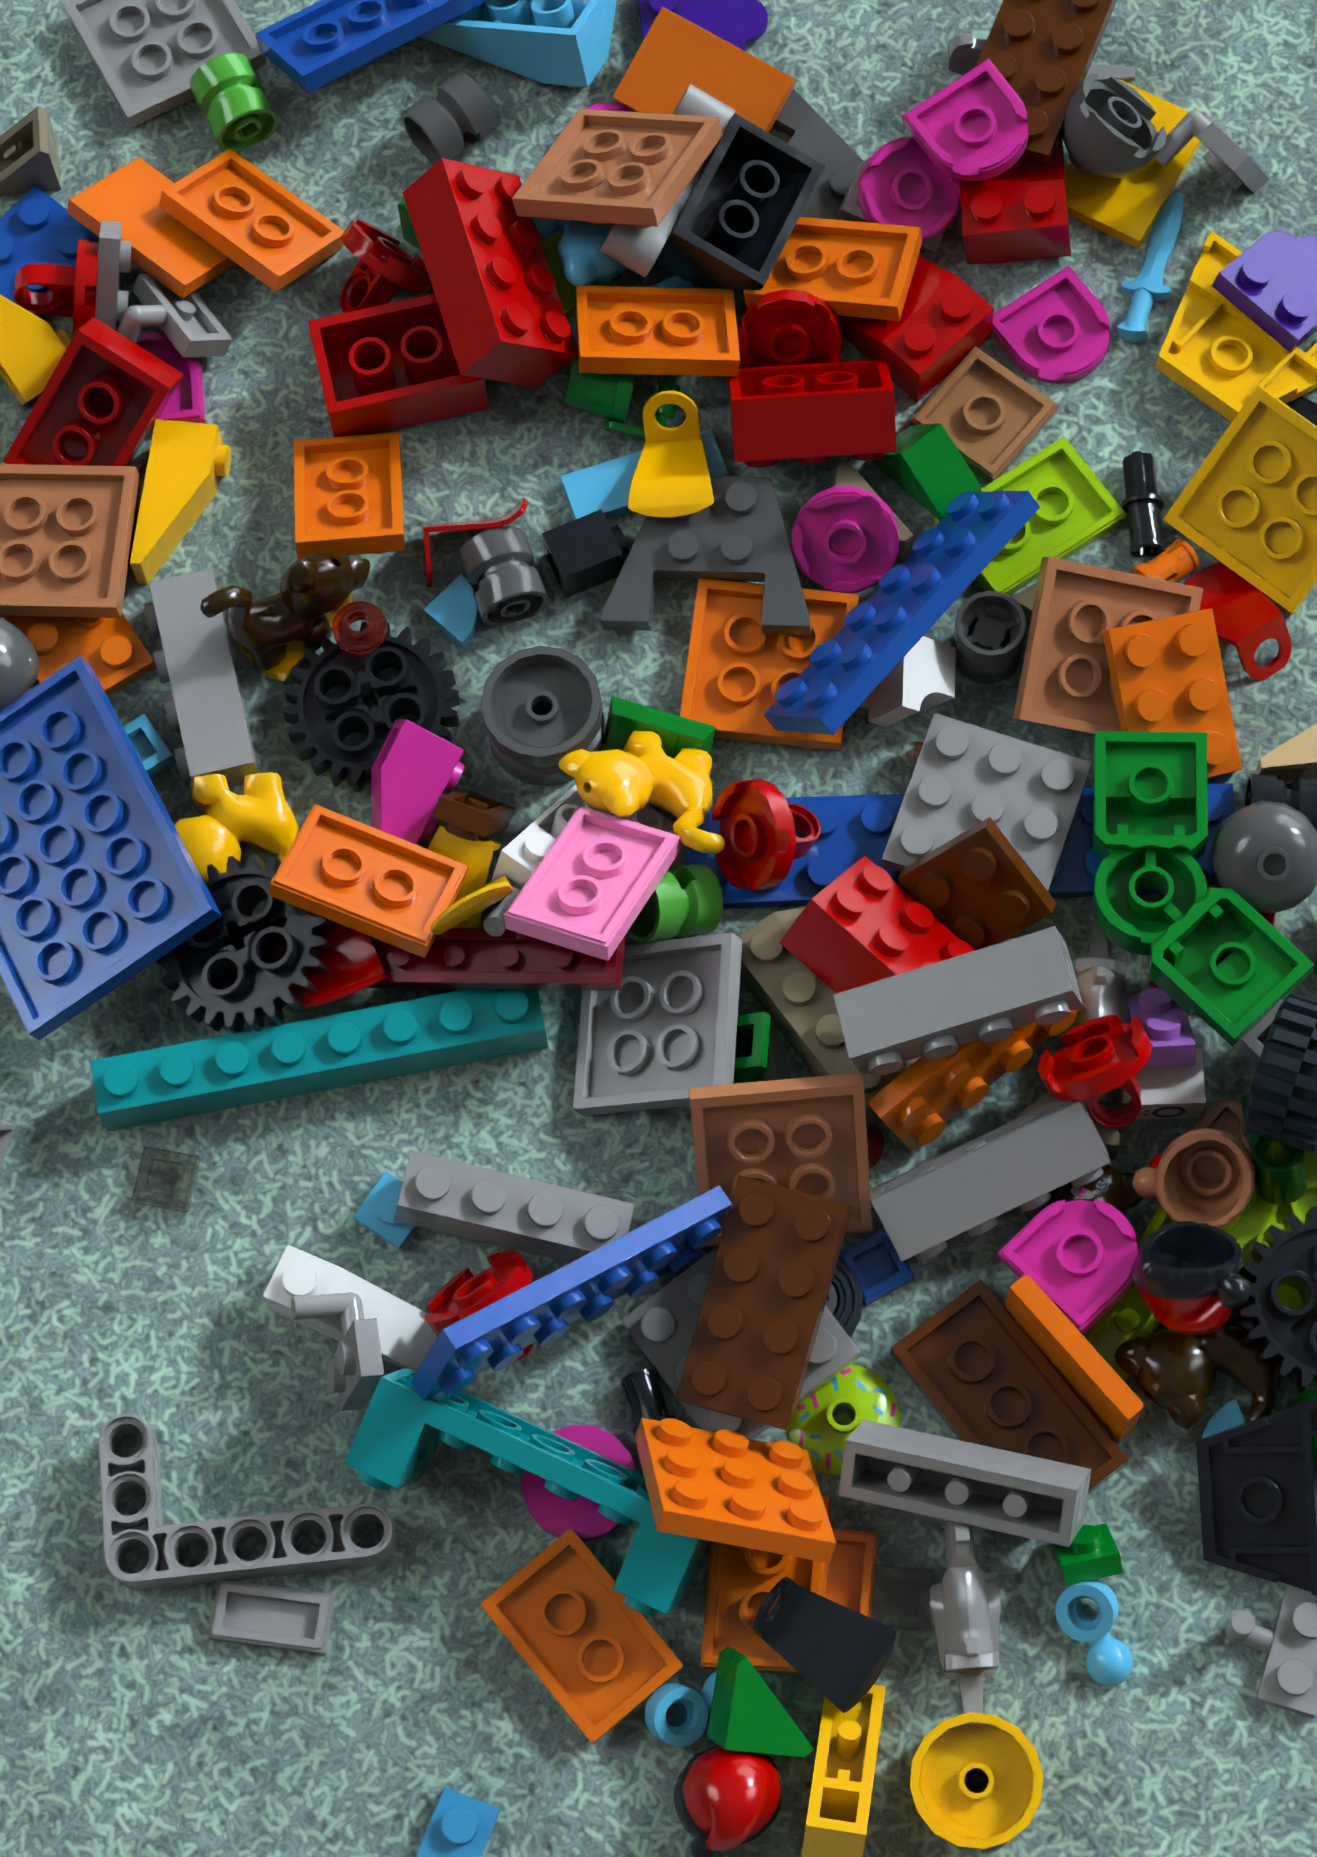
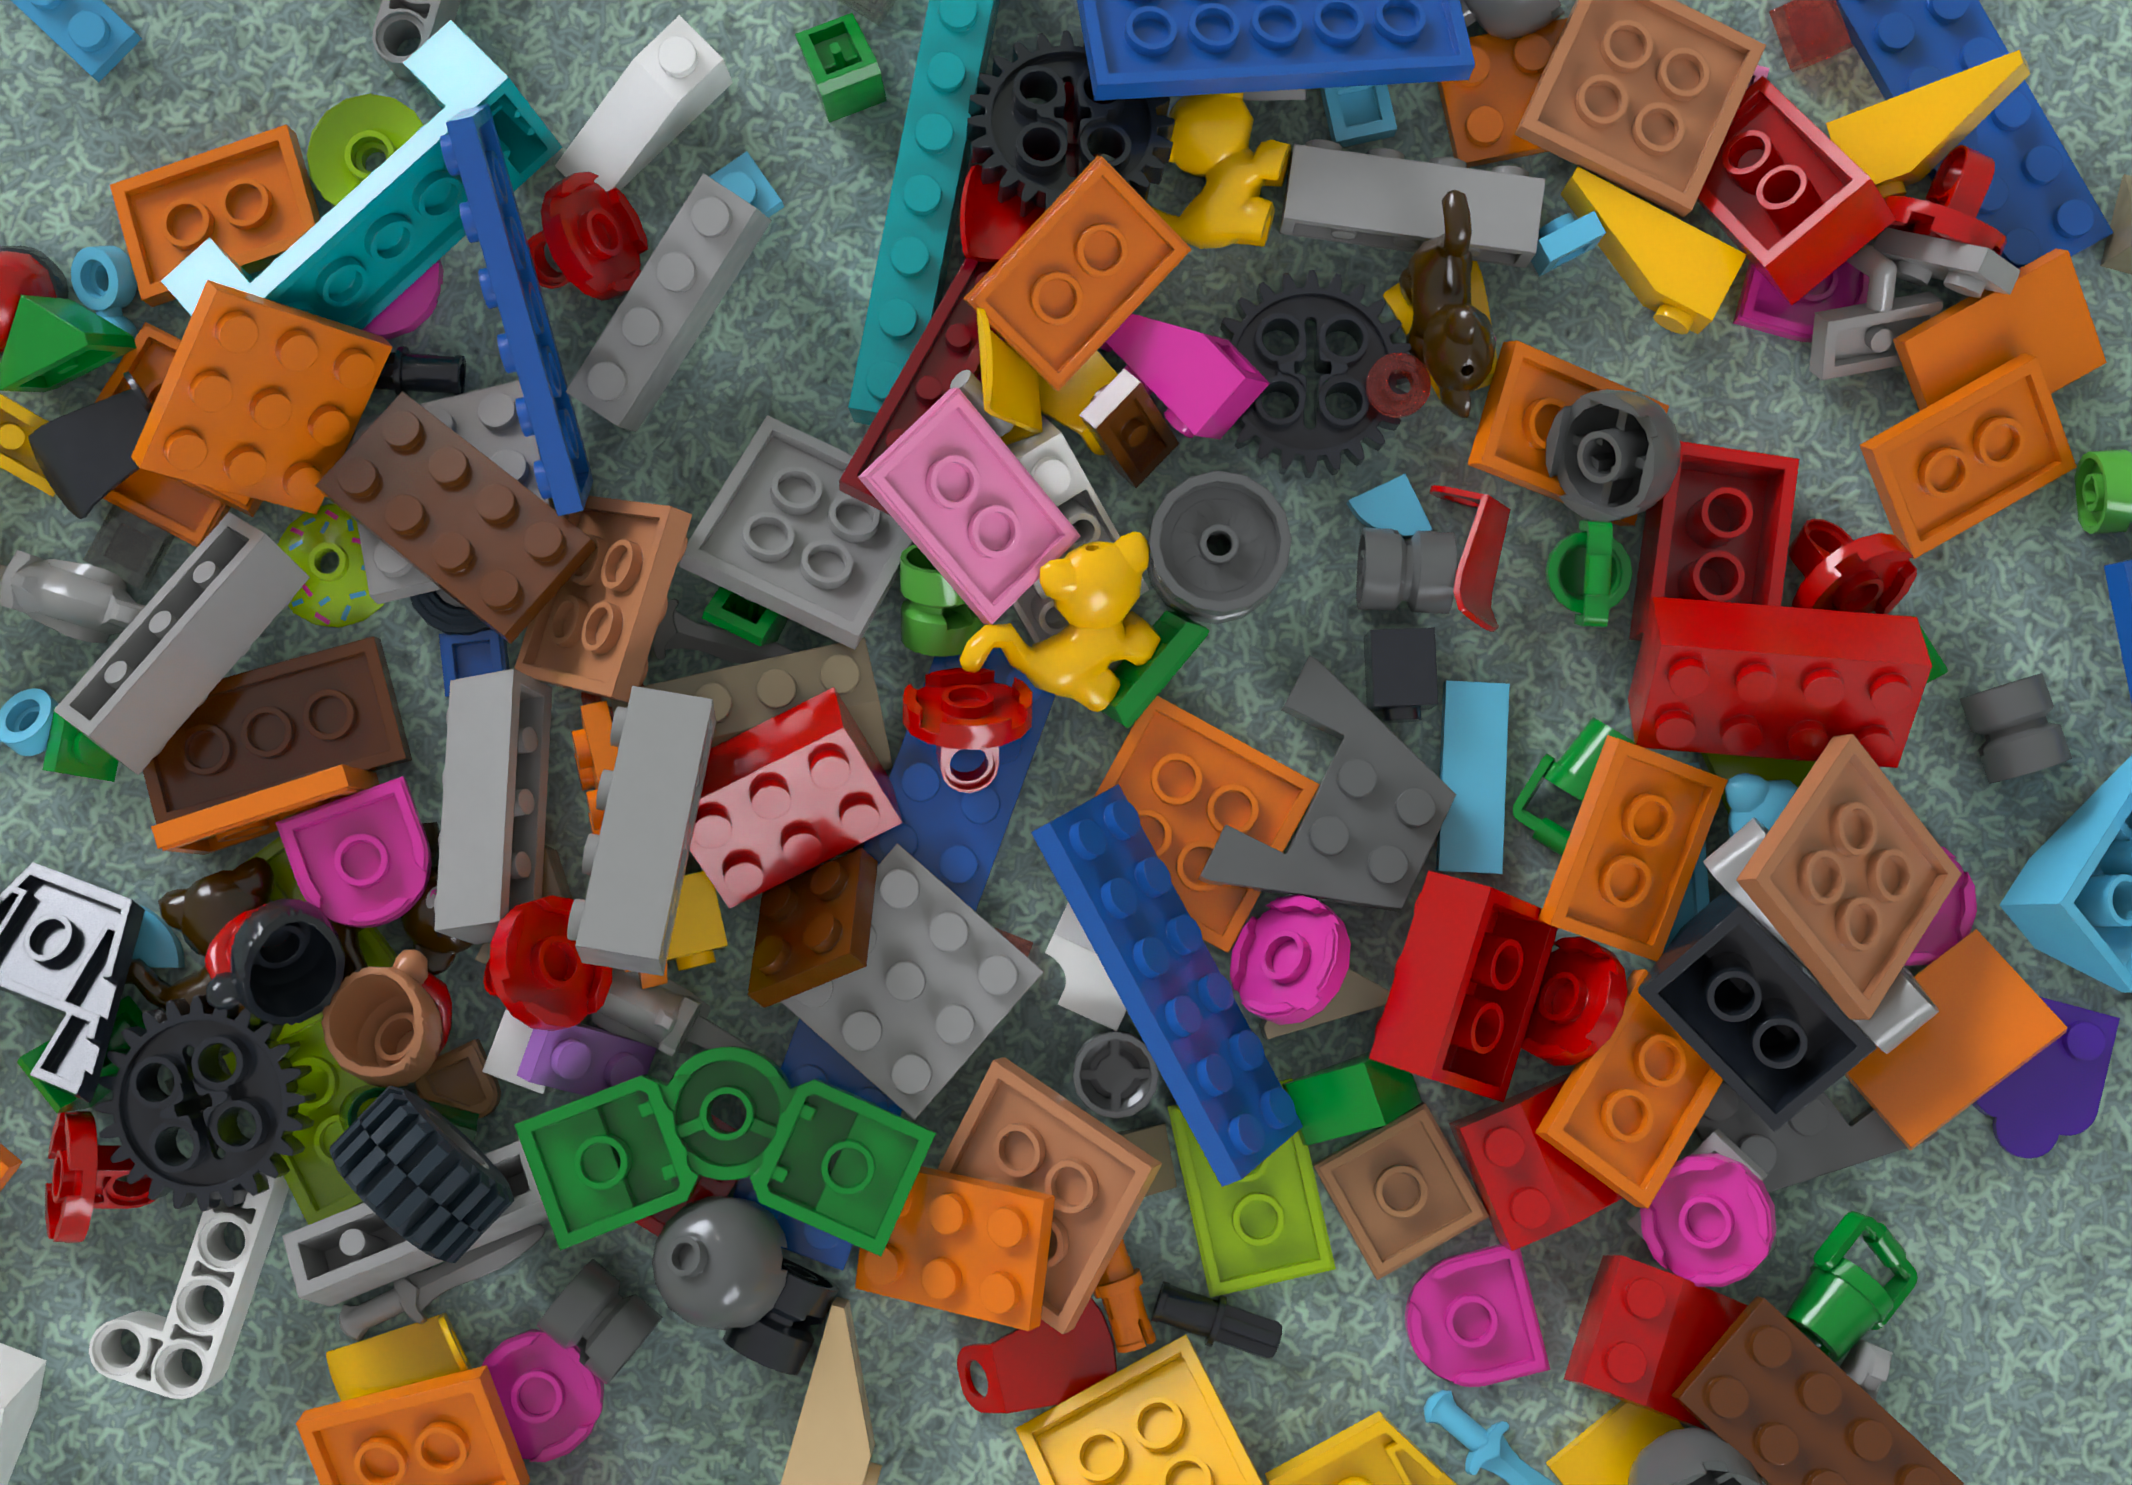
camera: 105 degrees right, 15 degrees up
(187, 554) = (1565, 240): none -> medium azure plate
(248, 1167) = (842, 67): none -> green slope
(358, 1357) = (572, 76): light grey plate -> none
(359, 444) = (1612, 454): none -> dark grey cylinder
(455, 440) = (1589, 573): none -> green piece
(473, 1497) = (350, 135): none -> lime dish
(673, 466) = (1459, 804): yellow piece -> none
(916, 83) = (1843, 1300): none -> green piece
(972, 125) = (1750, 1323): dark pink tile -> none

